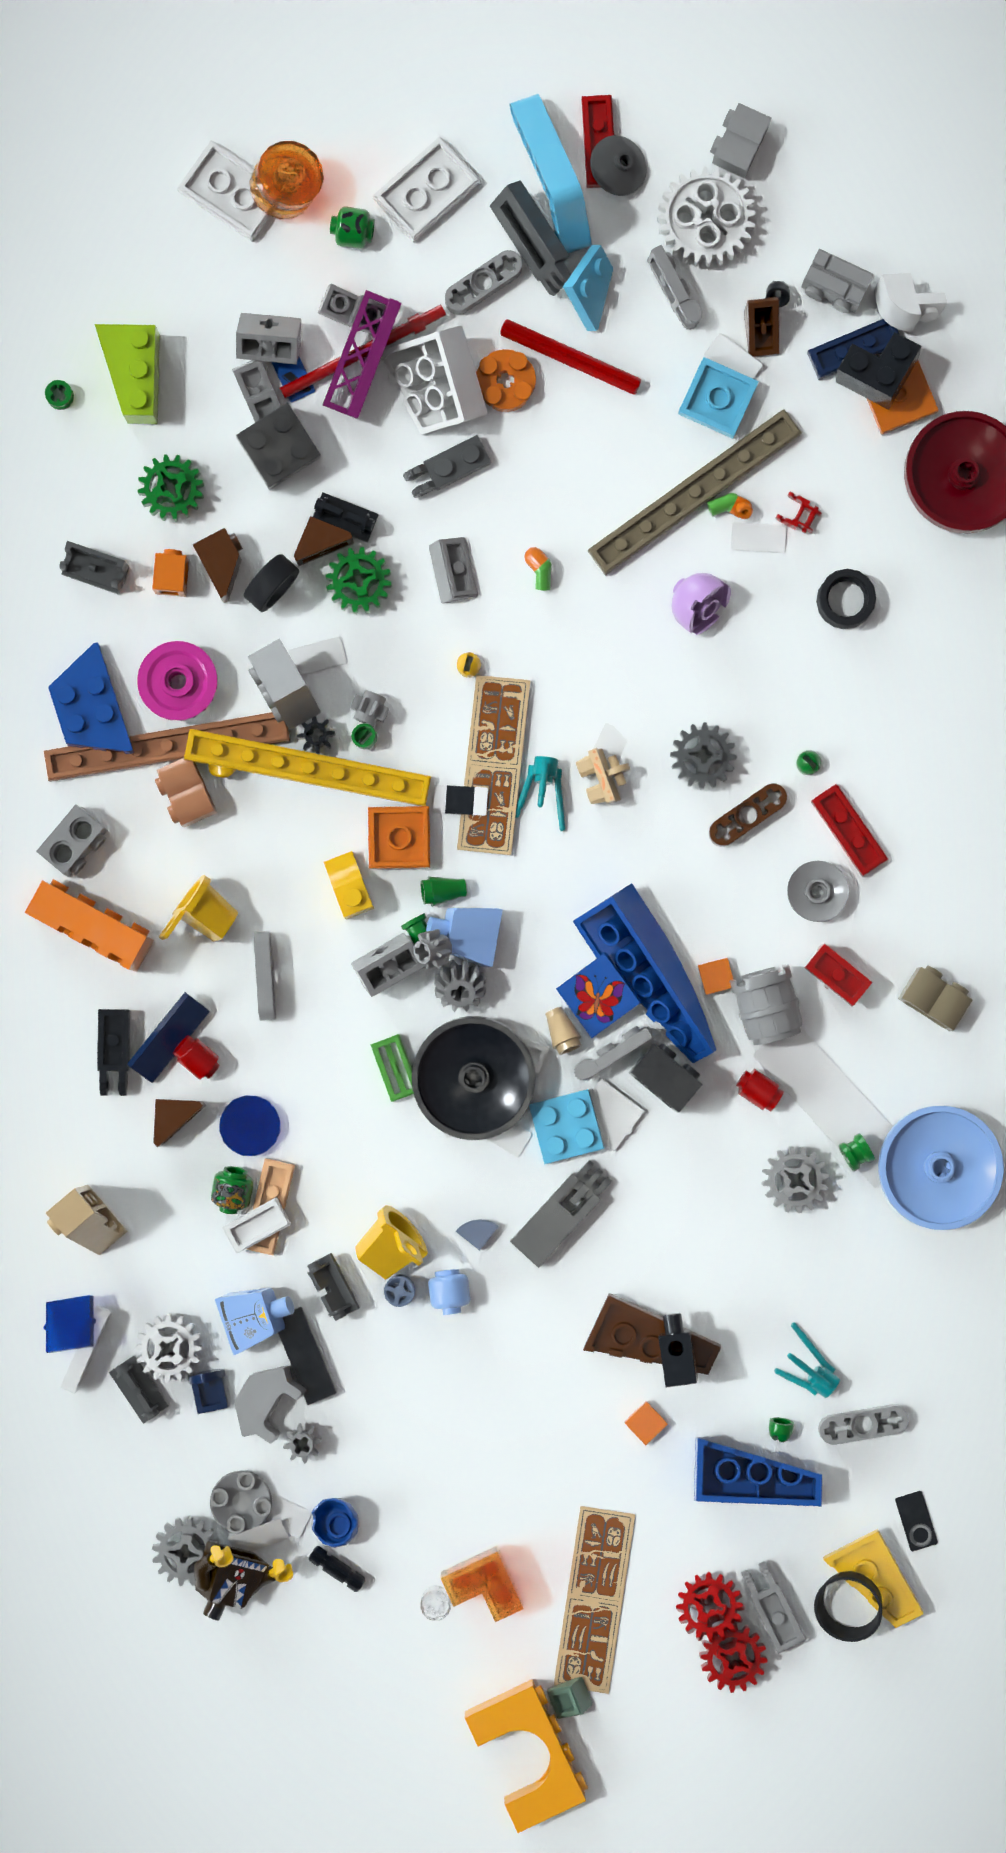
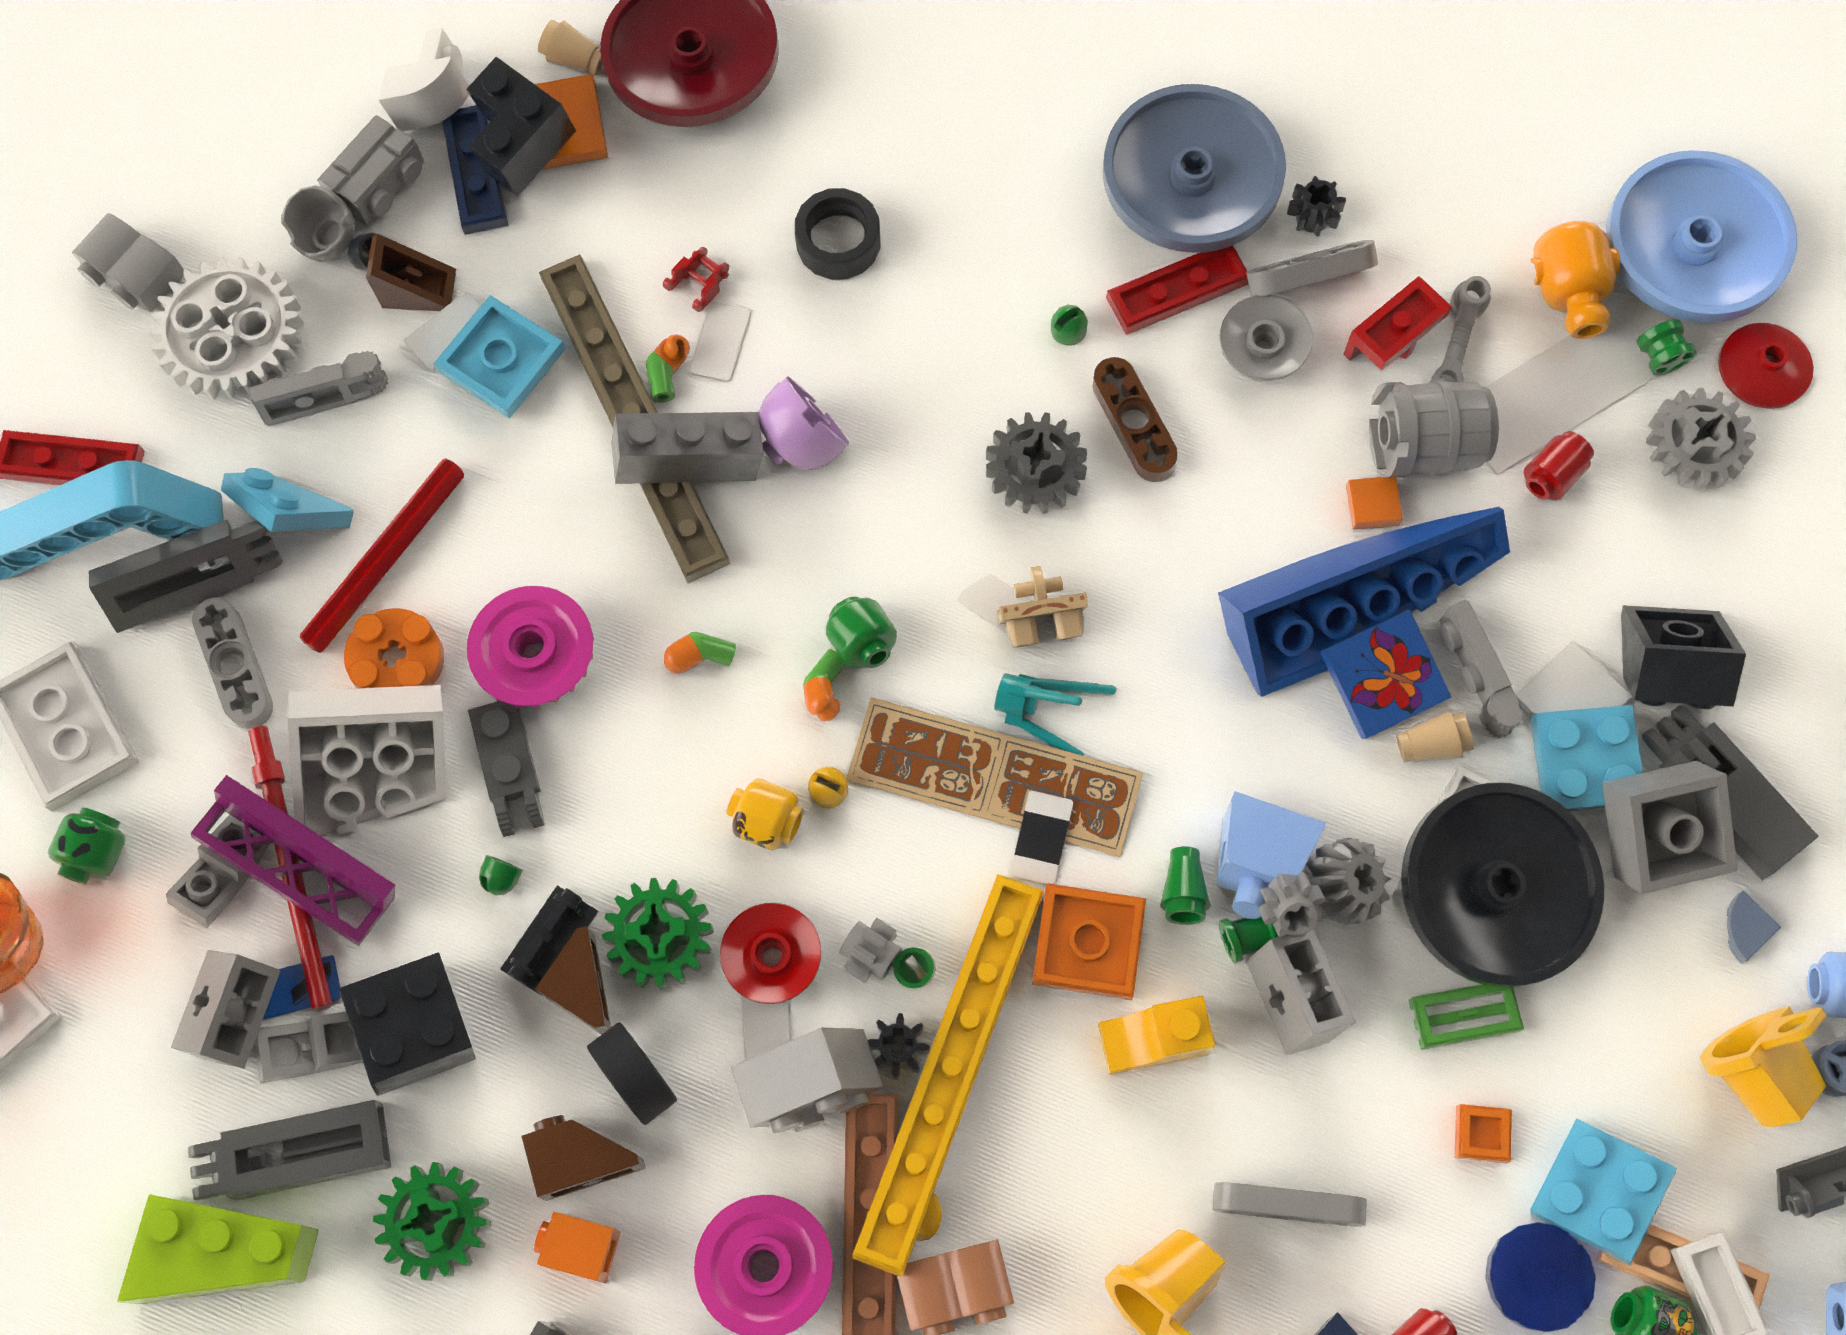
camera: 75 degrees left, 15 degrees down
(201, 408) = (315, 1151): none -> dark grey hinge
(303, 1155) = (1603, 1191): none -> medium azure plate
(326, 1085) = (1483, 1133): none -> orange tile
(354, 634) = (766, 928): none -> red dish
(378, 478) = (498, 876): none -> green hinge
(442, 629) = (765, 814): none -> yellow head
(452, 569) = (671, 787): light grey slope -> none
(525, 1173) = (1670, 826): none -> light grey brick
(527, 444) = (522, 619): none -> dark pink gear
(531, 646) = (818, 686): none -> orange arm
(568, 665) = (861, 632): none -> green head
(609, 171) = (112, 435): dark grey dish -> none
(643, 1176) = (1680, 657): none -> black slope
(666, 1077) = (1533, 587): black brick -> none
(669, 531) = (686, 447): none -> flat silver brick
(789, 257) = (318, 223): none -> light grey hair
(845, 1222) = (1757, 379): none -> red dish
(850, 1019) = (1467, 311): none -> light grey brick
(874, 915) = (1312, 268): none -> light grey beam
(898, 1087) = (1576, 275): none -> light orange piece
(930, 911) = (1316, 206): none -> black gear
(933, 825) = (1194, 168): none -> sand blue dish
(935, 998) = (1445, 208): dark tan brick -> none
(955, 390) = (569, 48): none -> tan cone

